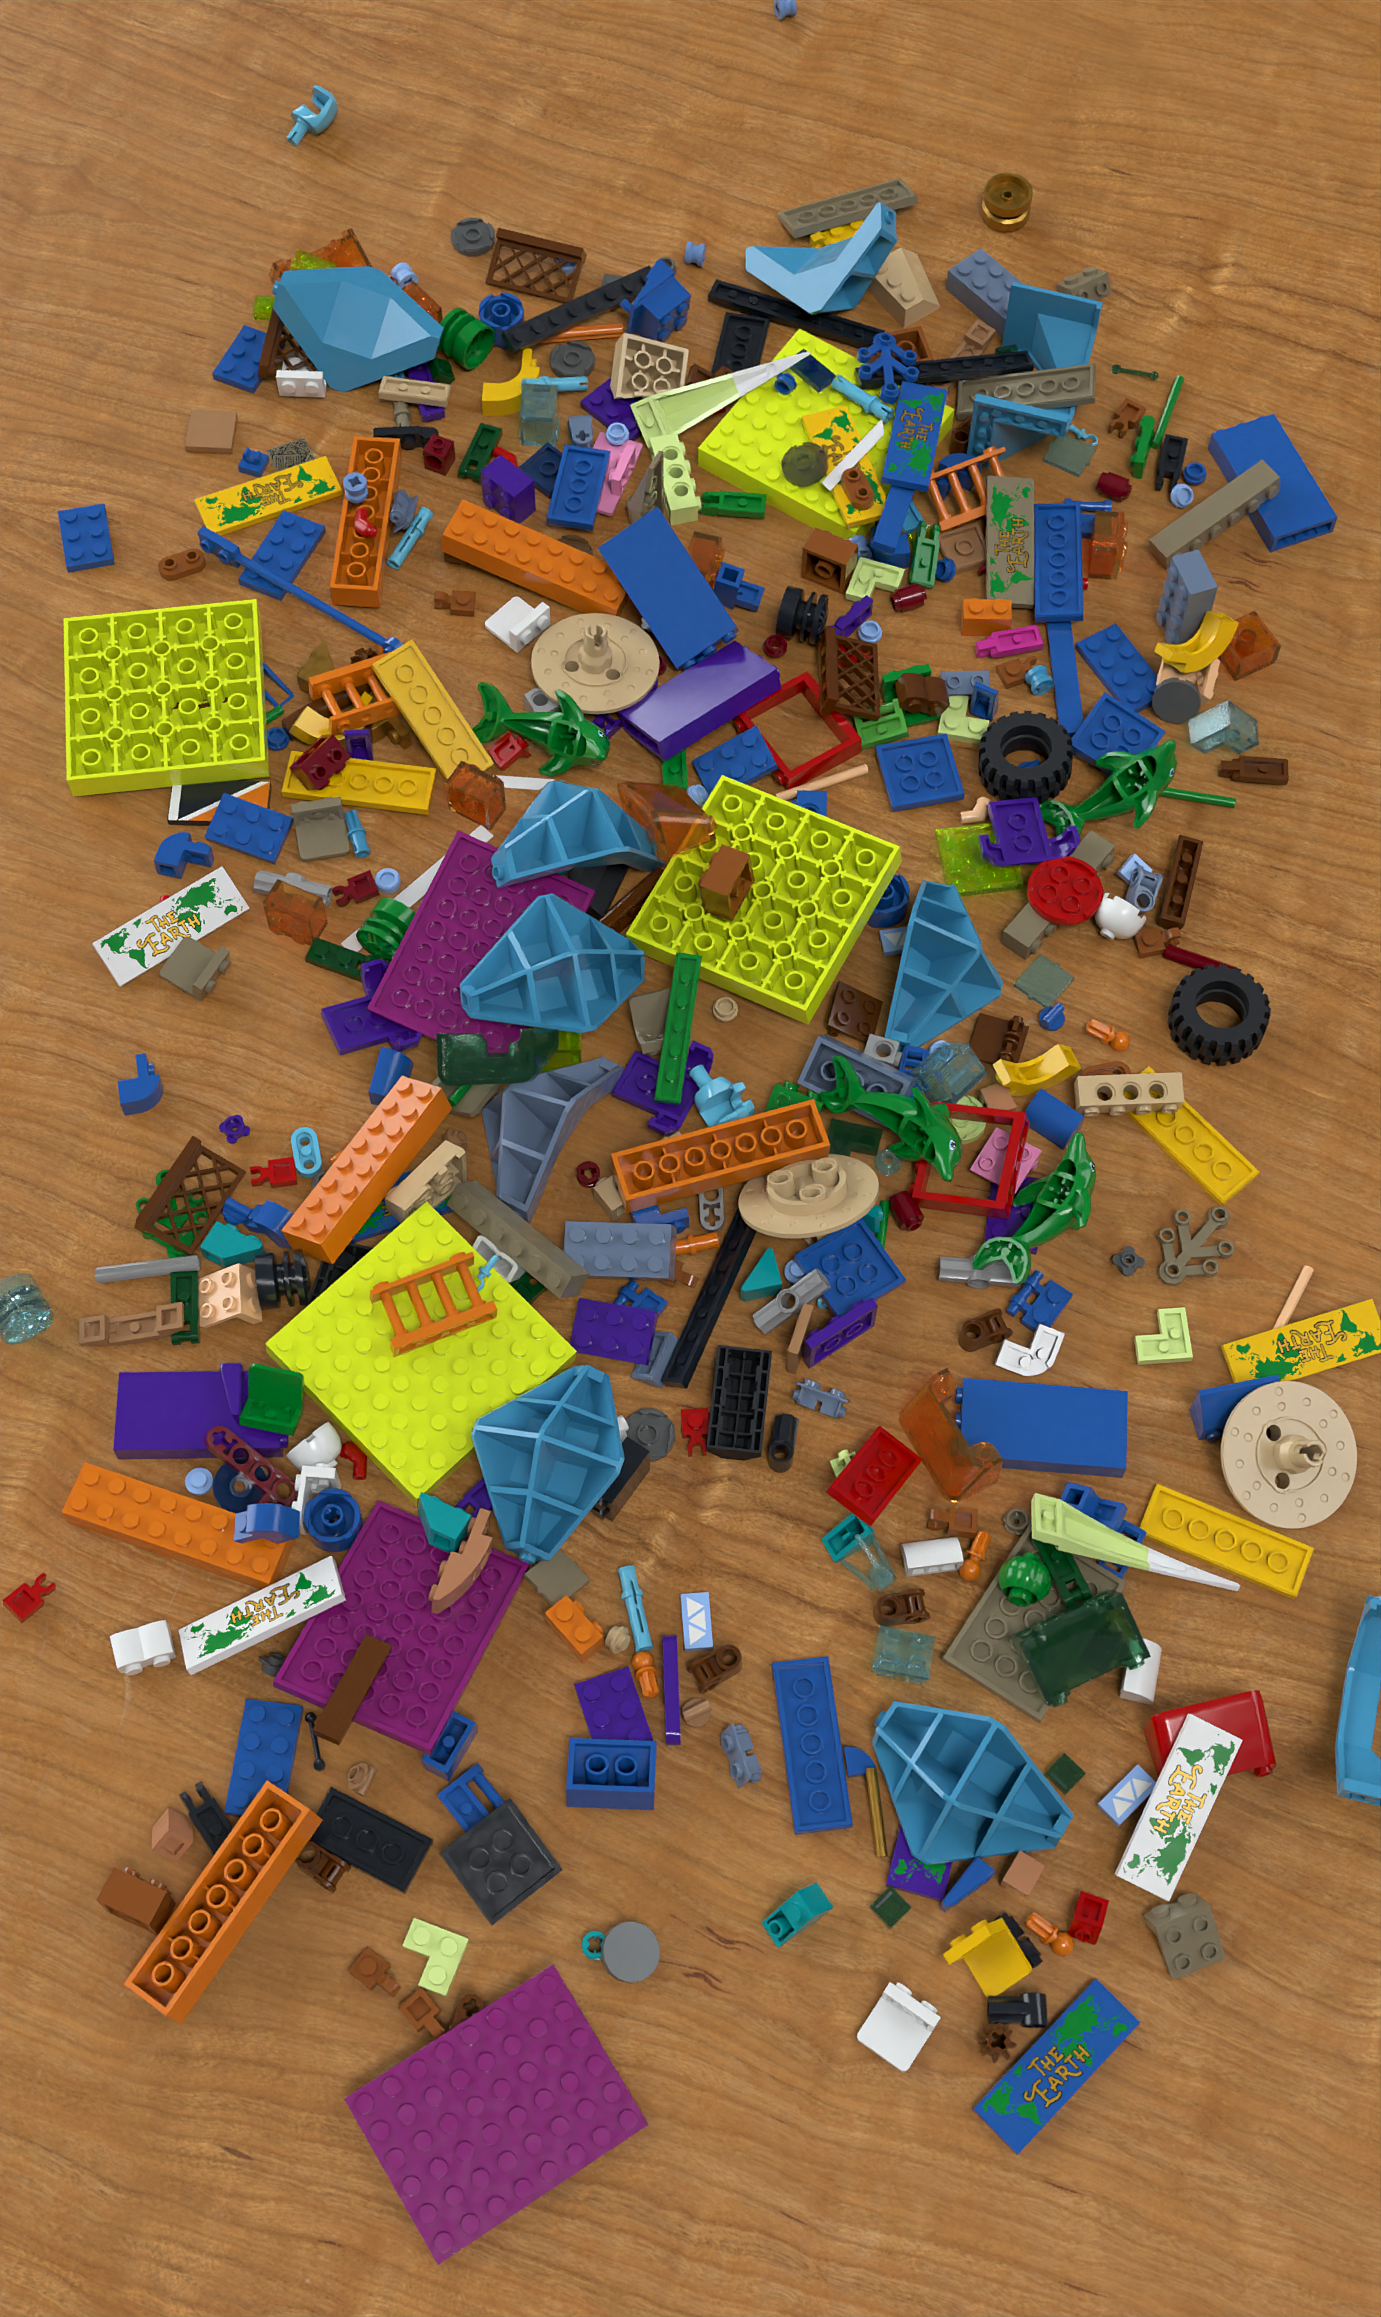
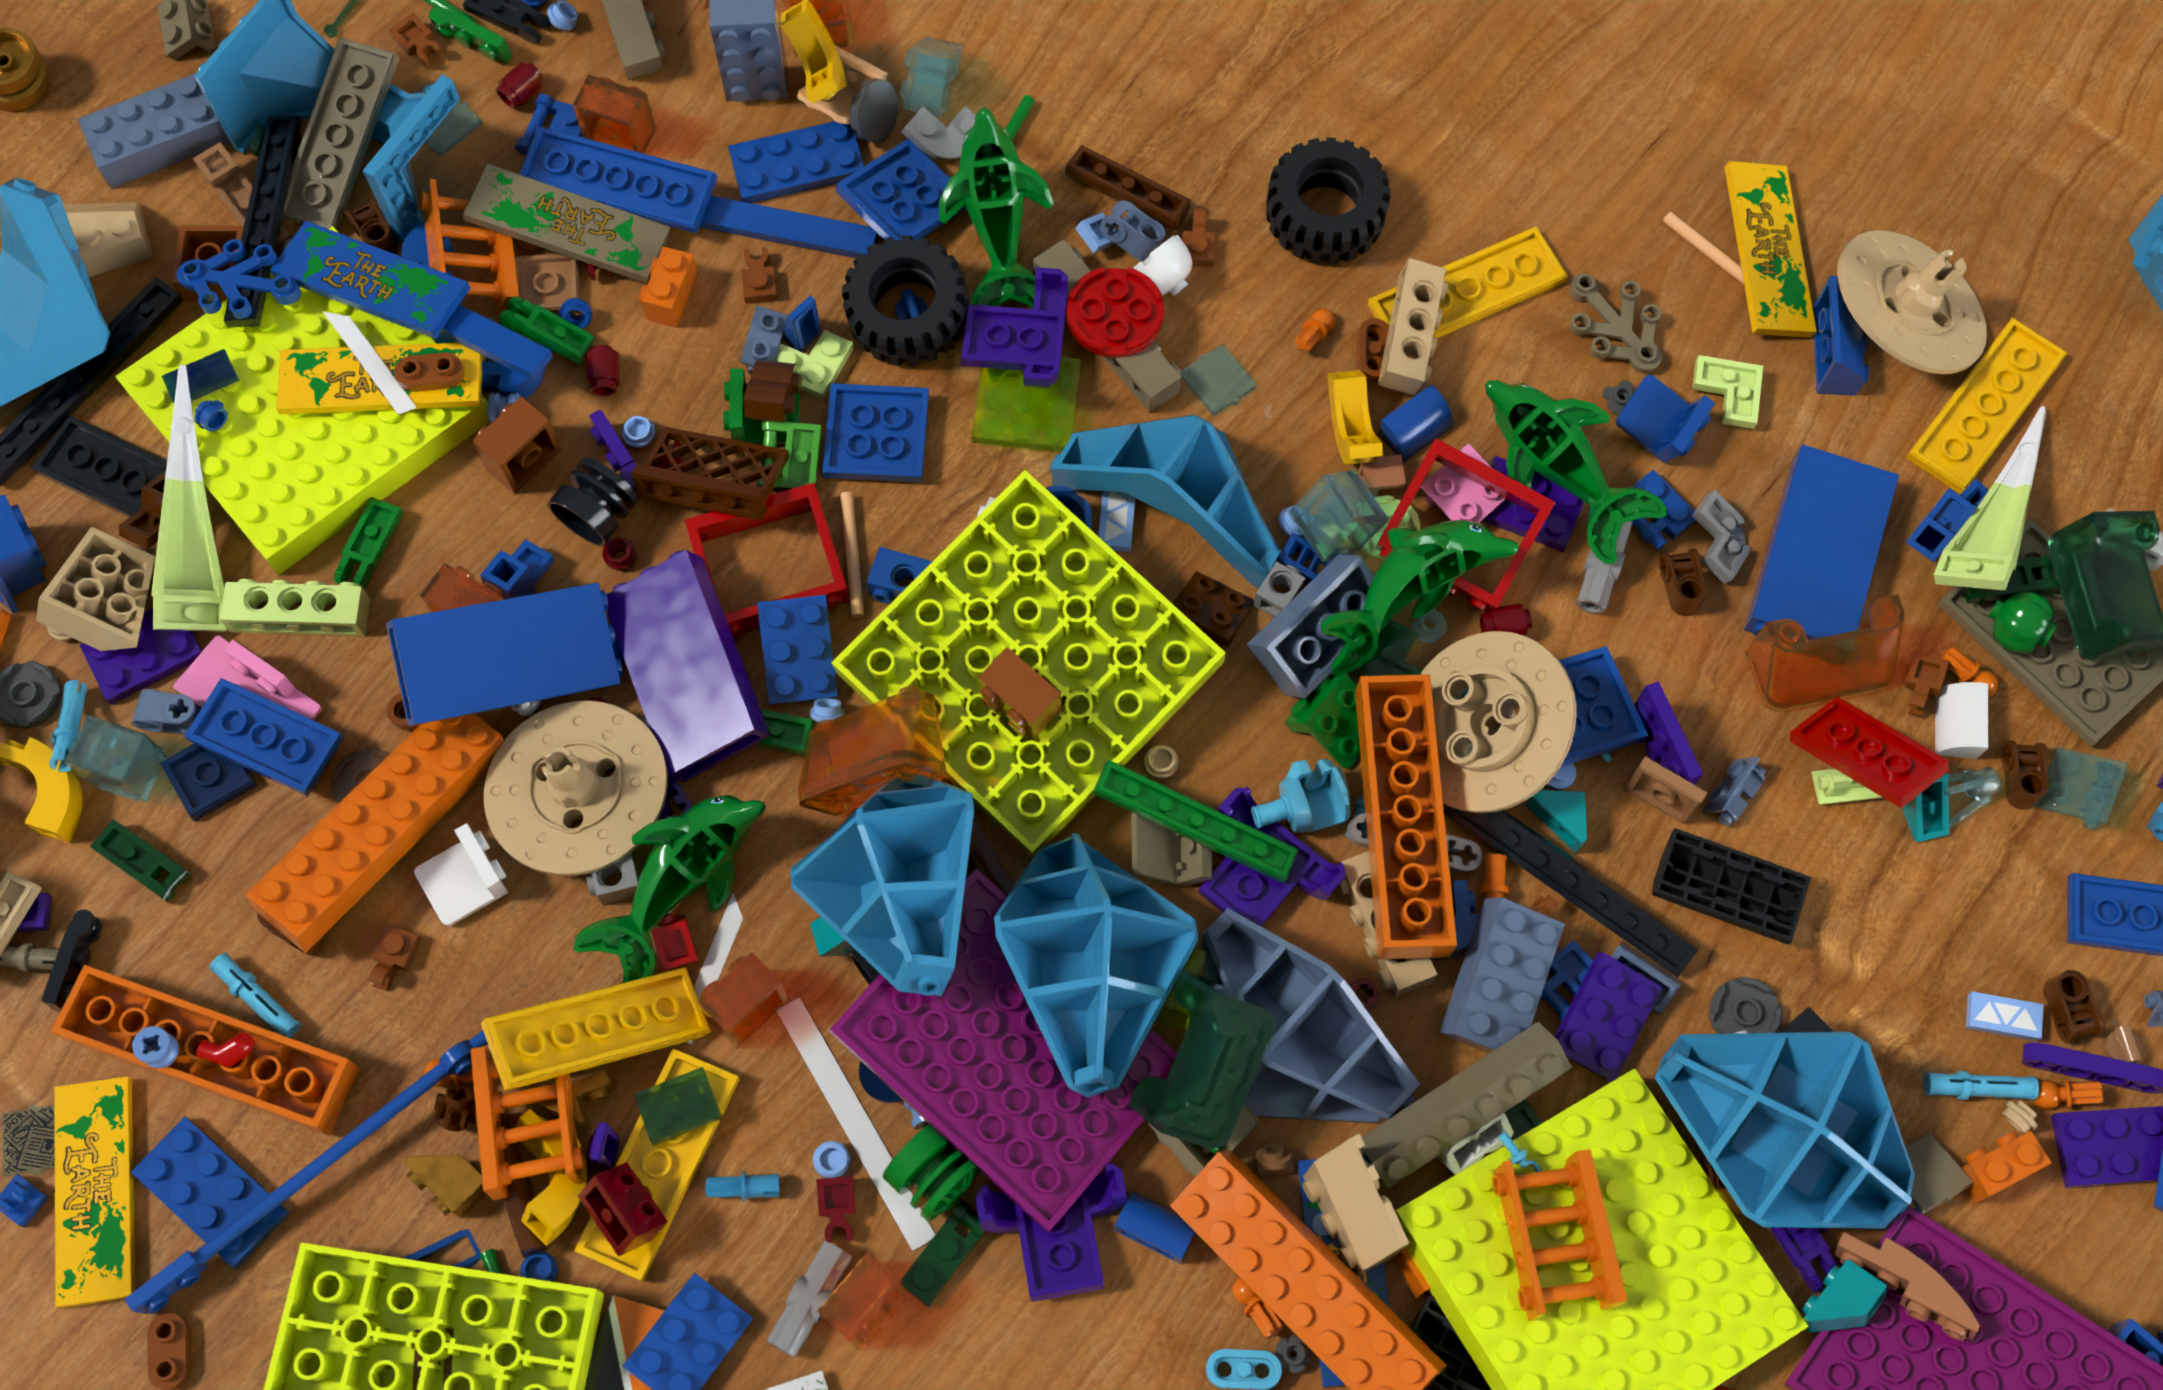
camera: 75 degrees left, 5 degrees up
(320, 829) = (724, 1237): dark tan bracket -> none
(397, 779) = (677, 1106): none -> clear green plate
(402, 510) = (209, 990): sand blue hinge -> none
(439, 454) = (124, 918): dark red brick -> none
(506, 454) = (168, 824): red arm -> none
(508, 490) = (235, 834): dark purple brick -> none
(617, 434) = (191, 663): light blue plate -> none
(649, 492) = (330, 651): dark tan wedge -> none
(695, 1426) = (1743, 952): red plate -> none
(783, 1442) = (1787, 850): black piece -> none
(804, 464) = (359, 427): clear smoke tile -> none
(805, 1292) = (1618, 807): light grey piece -> none
(870, 403) = (274, 328): medium azure pin -> none
(873, 574) = (553, 400): yellowish green plate -> none
(978, 814) = (958, 382): light nougat arm -> none
(998, 1038) = (1290, 454): reddish brown hinge -> none
(1010, 642) = (714, 271): dark pink hinge -> none
(1016, 1514) = (1935, 608): dark tan plate -> none
(1039, 680) = (785, 254): dark azure wheel -> none
(1052, 1017) = (1274, 383): blue plate -> none
(1118, 1288) = (1663, 419): none -> blue bracket
(1189, 765) = (937, 139): none -> light grey plate
(1190, 958) = (1240, 202): dark red axle -> none
(1256, 770) = (993, 61): reddish brown hinge -> none

